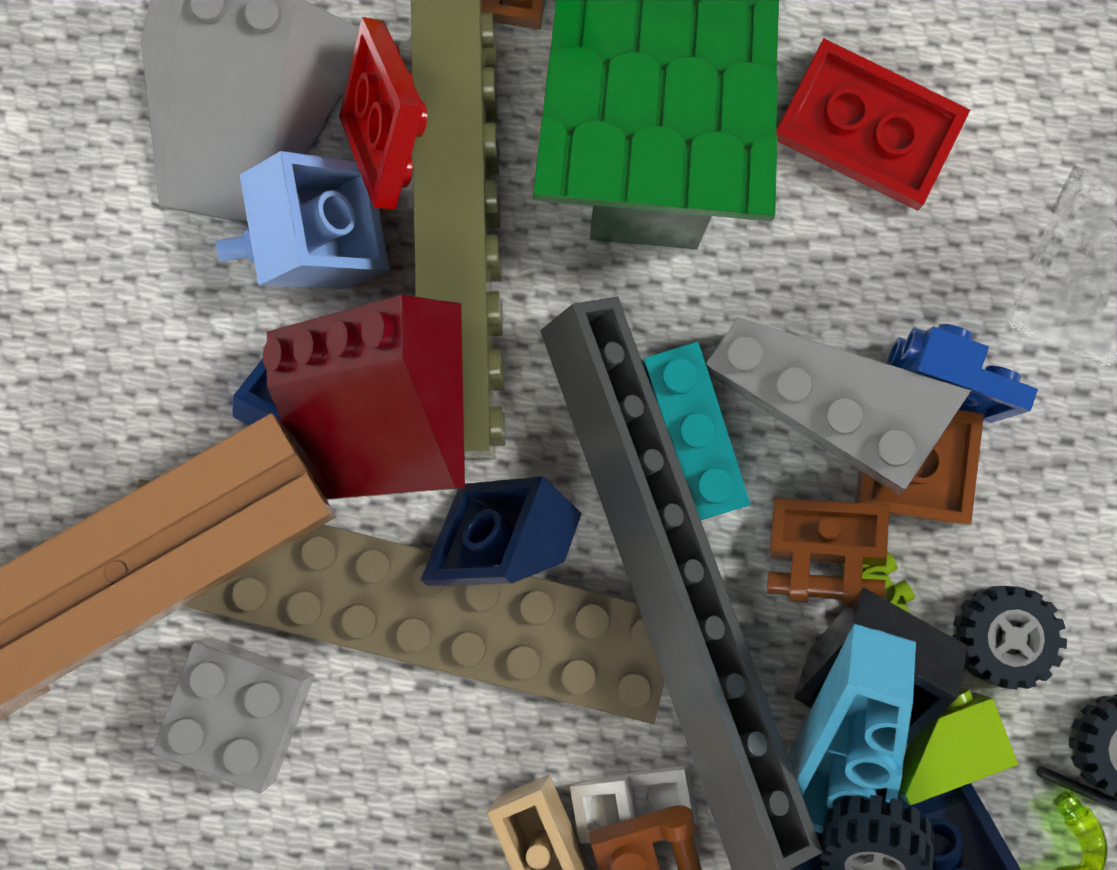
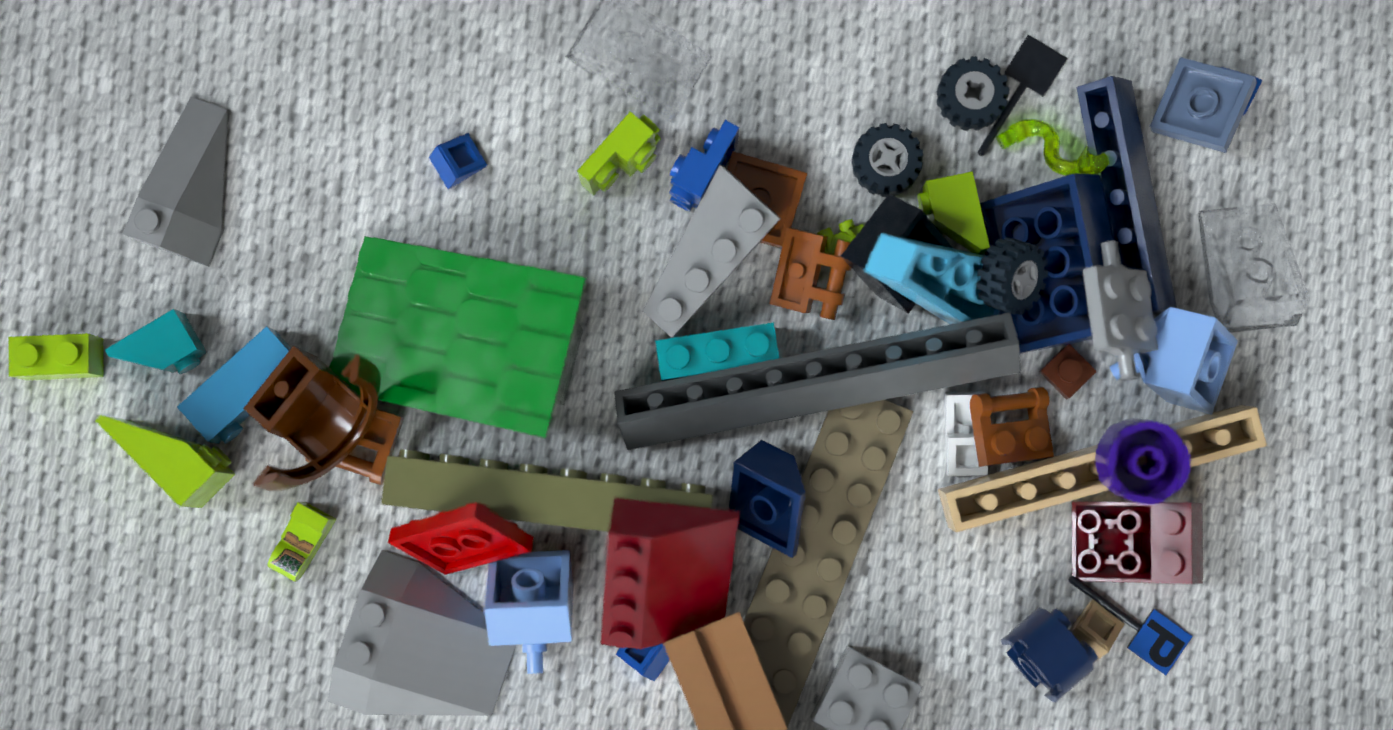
camera: 80 degrees left, 0 degrees up
(871, 124) = (513, 193): red plate -> none
(903, 43) = (457, 160): none -> blue slope
(965, 257) = (626, 147): none -> lime plate

